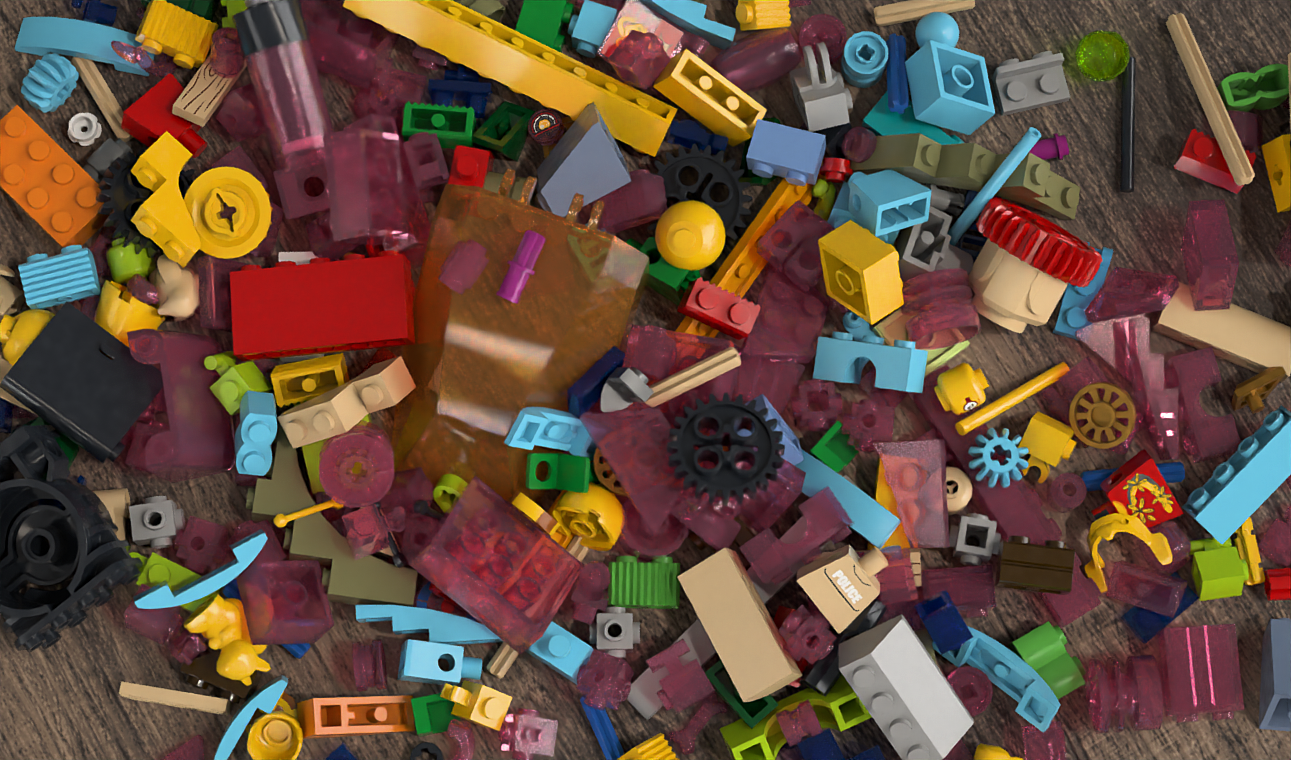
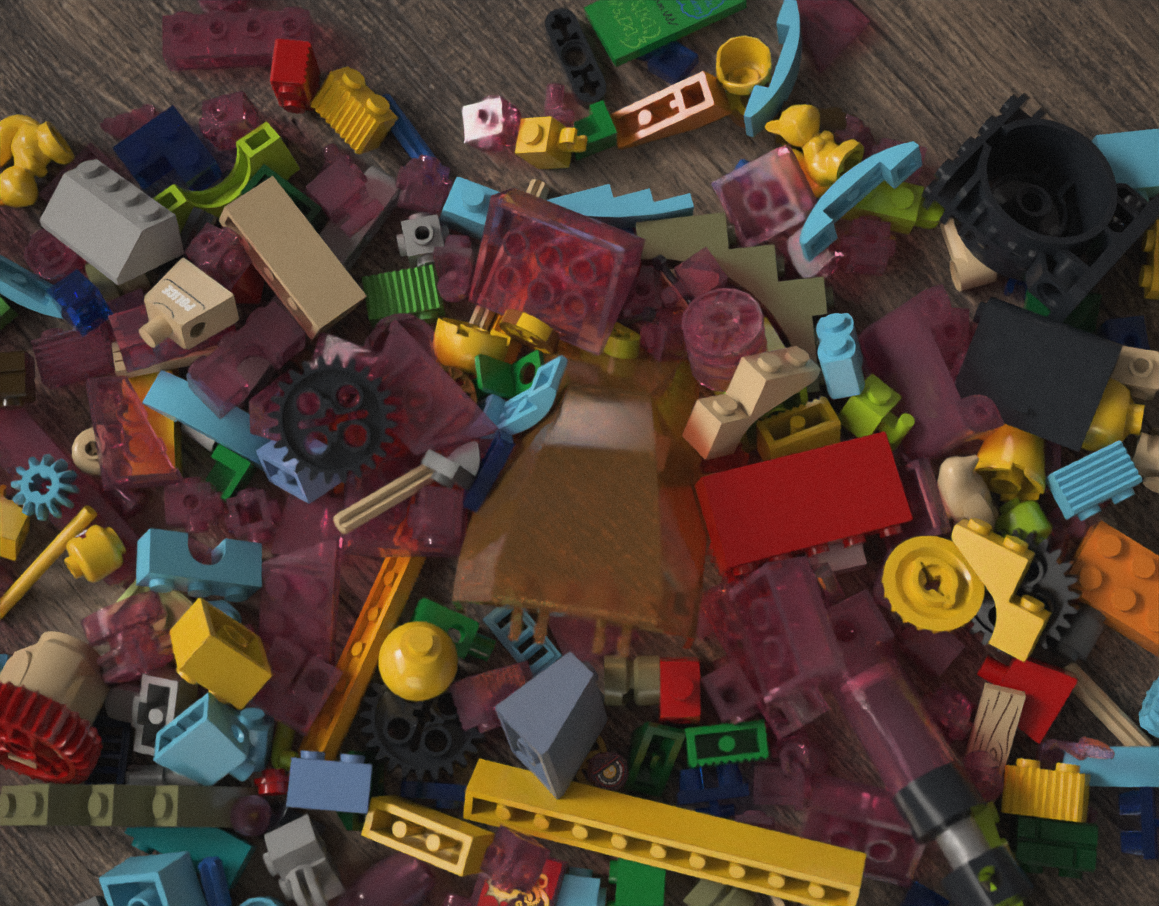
camera: 170 degrees right, 0 degrees up
(84, 120) = (1122, 660): white plate -> none
(142, 289) = (1002, 482): clear pink piece -> none
(144, 520) = (920, 258): light grey brick -> none
(175, 698) = (857, 94): tan tile -> none
(281, 520) = (790, 274): yellow hinge -> none
(365, 665) = (667, 160): clear pink wheel -> none
(420, 663) = (600, 166): medium azure torso -> none
(464, 265) = (650, 527): clear pink brick -> none
(521, 266) = (586, 539): magenta axle -> none
(718, 308) = (373, 590): brick -> none
(799, 723) = (216, 179): clear pink wheel -> none
(979, 527) = (54, 399): light grey brick -> none
(993, 184) = (82, 786): medium azure piece -> none
(1051, 147) = (41, 861): magenta pin -> none

